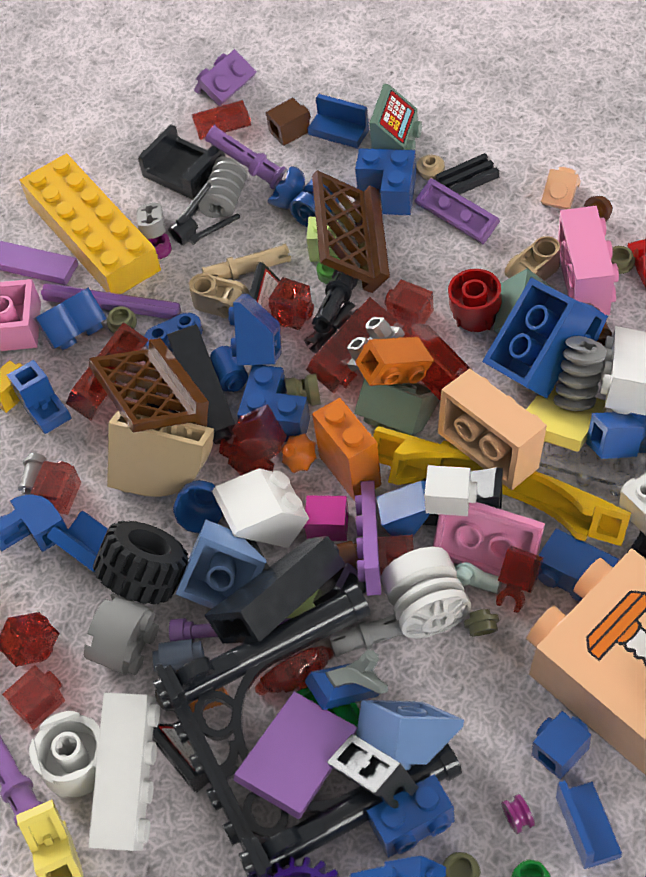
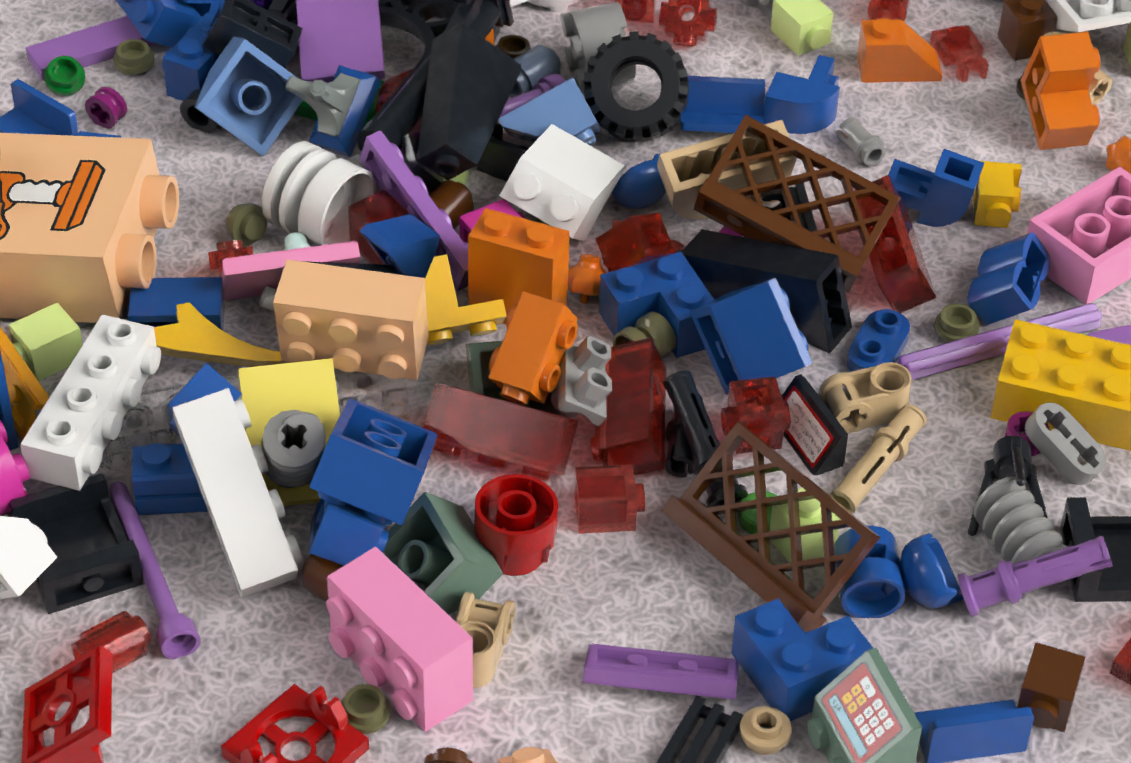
camera: 135 degrees right, 10 degrees down
(58, 484) = (819, 130): clear red brick -> none
(449, 490) = (346, 225): white brick -> none

